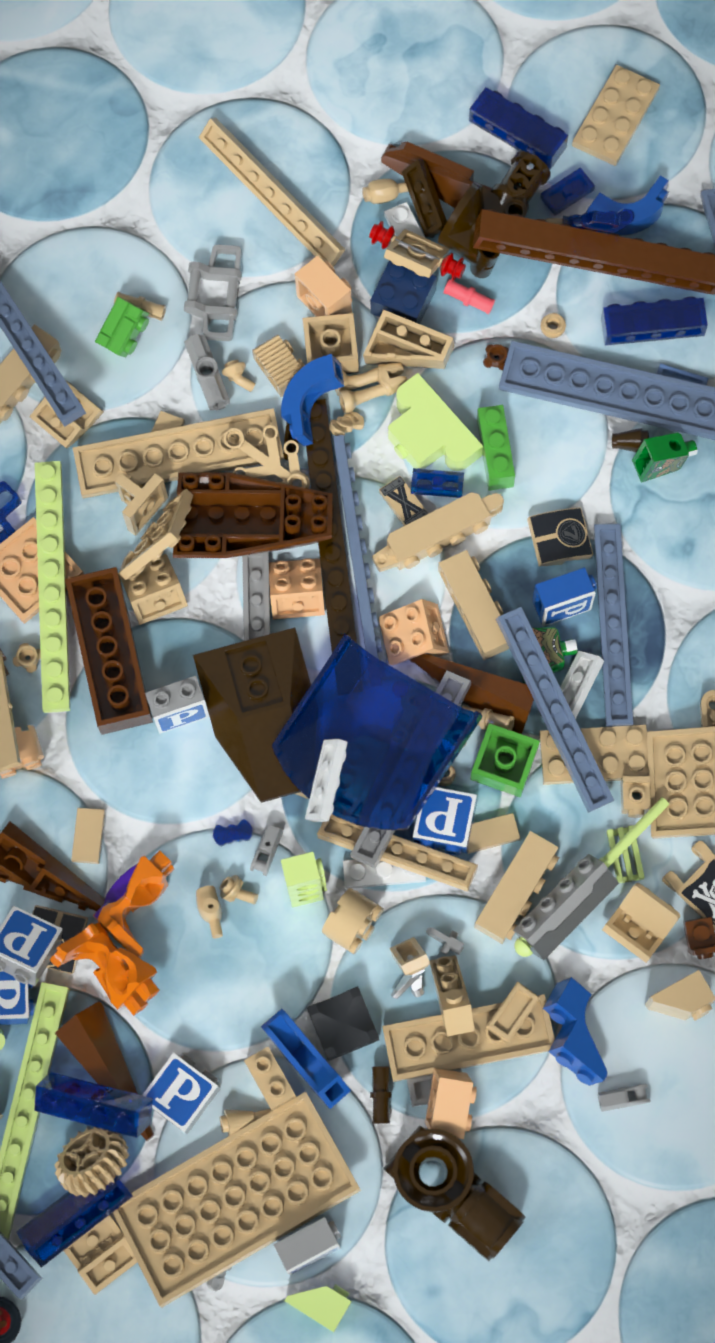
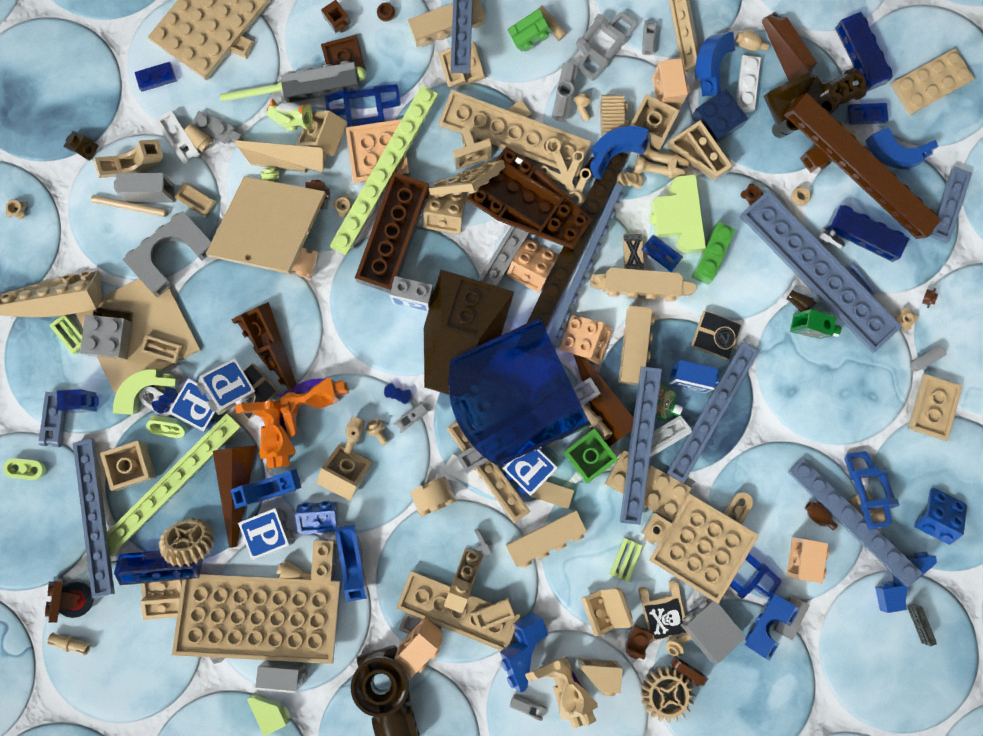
camera: 25 degrees right, 10 degrees up
(88, 836) = (310, 340): tan tile -> none
(93, 1104) = (208, 509): clear blue brick -> none
(149, 1039) = (266, 489): none -> blue arch
(228, 963) = (343, 473): none -> tan slope
(229, 1037) = (316, 517): none -> blue bracket
(265, 256) = (648, 43): none -> light grey bar
(304, 878) = (416, 455): yellowish green brick -> none
(326, 780) = (468, 404): white plate -> none
(343, 1023) = (388, 554): black brick -> none
(351, 240) = (709, 61): none -> blue arch
(381, 1095) = (383, 611): dark brown pin -> none
(412, 962) = (451, 546): tan piece -> none
(416, 252) = (745, 95): tan plate -> none
(424, 198) = (773, 62): dark brown plate -> none
(469, 296) = (760, 144): coral pin -> none
(542, 275) = (815, 159): none -> reddish brown brick
(575, 896) = (578, 568): piece -> none
(601, 221) = (878, 147): clear blue bar -> none
(614, 350) = (829, 236): none -> light grey piece
(665, 1046) = (571, 697): none -> tan hips

